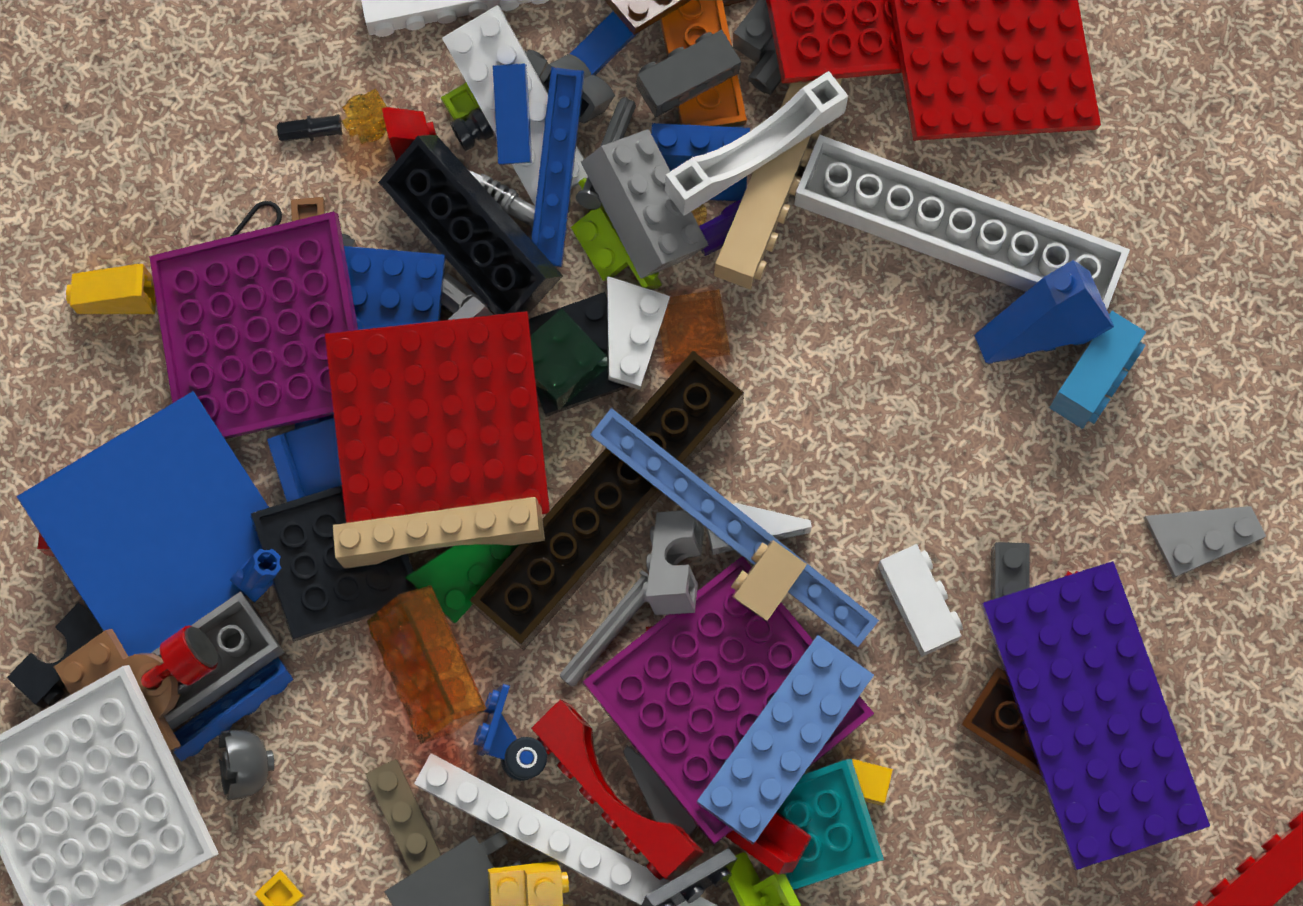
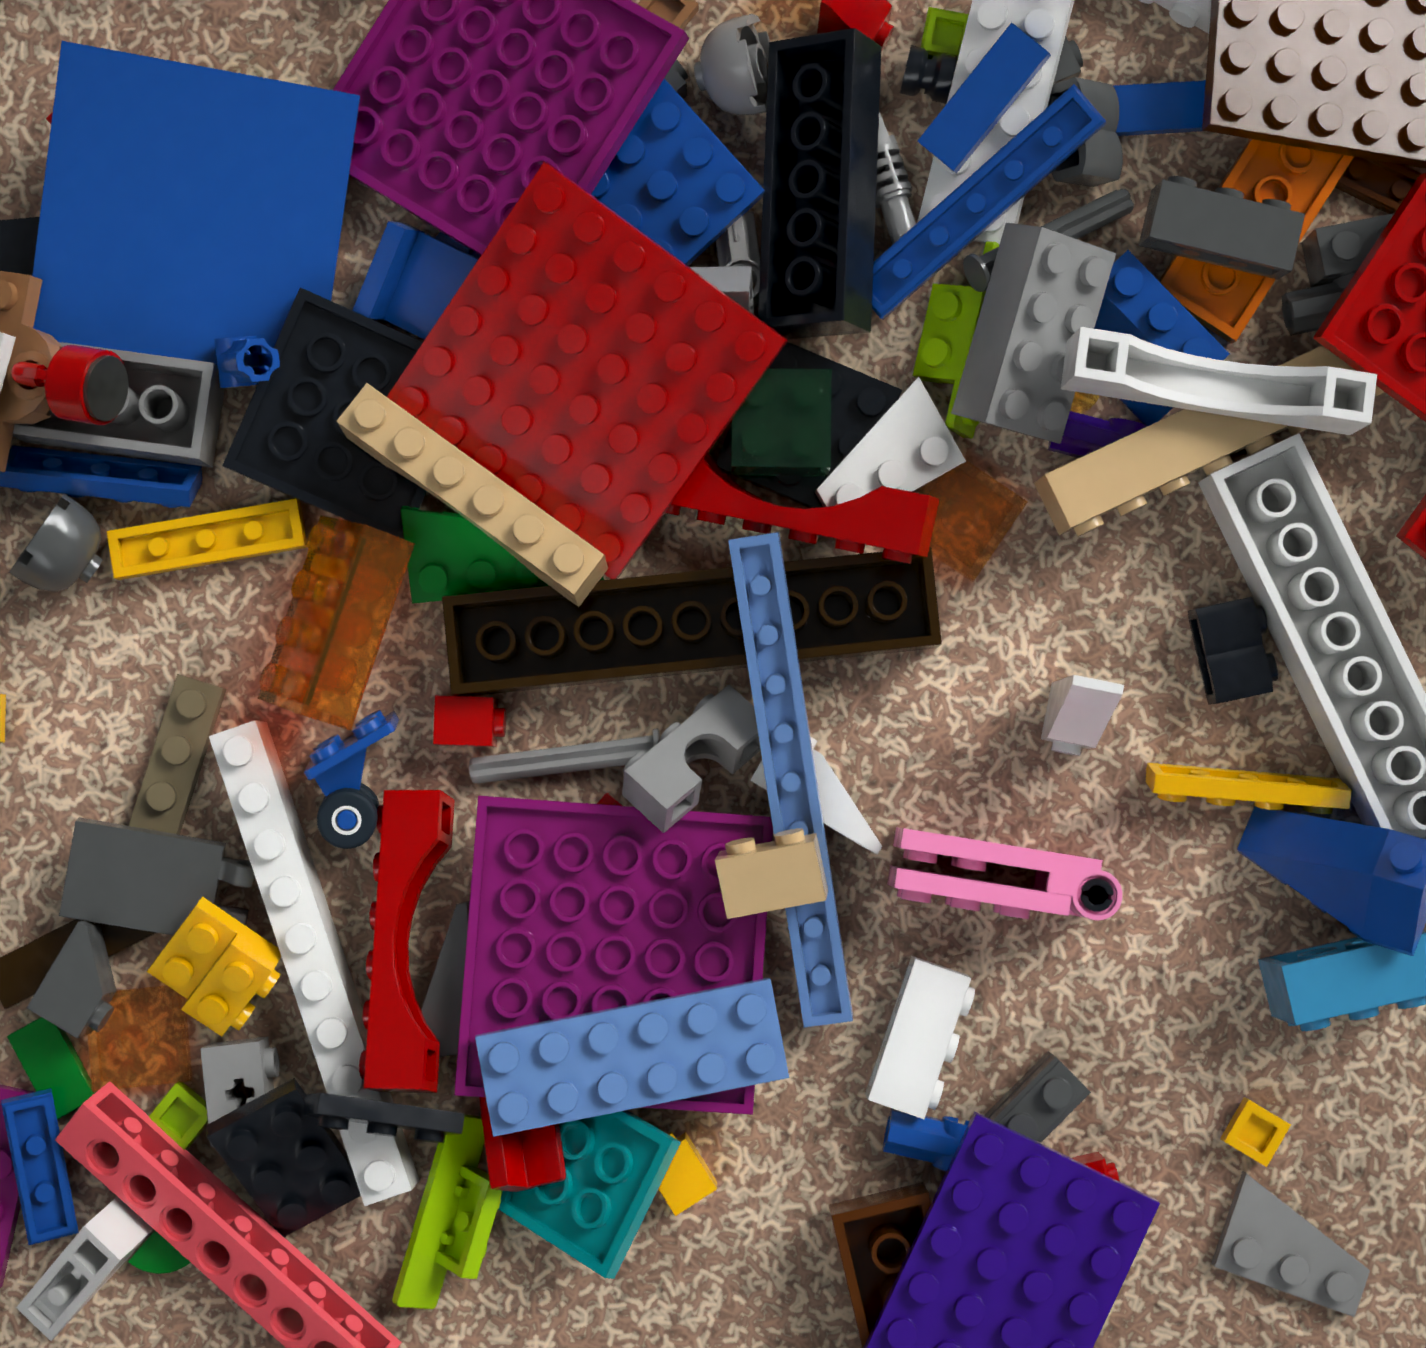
camera: 45 degrees right, 10 degrees up
(316, 690) = (207, 539): none -> yellow plate
(371, 210) = (735, 66): none -> light grey cylinder
(541, 655) = (468, 721): none -> red brick
(656, 357) = (882, 518): none -> red arch
(843, 363) = (1079, 712): none -> white slope
(889, 269) = (1232, 650): none -> black brick
(916, 453) = (1056, 888): none -> bright pink hinge
(970, 648) = (923, 1139): none -> blue piece
(971, 320) = (1266, 789): none -> yellow plate
(1129, 491) = (1255, 1131): none -> yellow plate

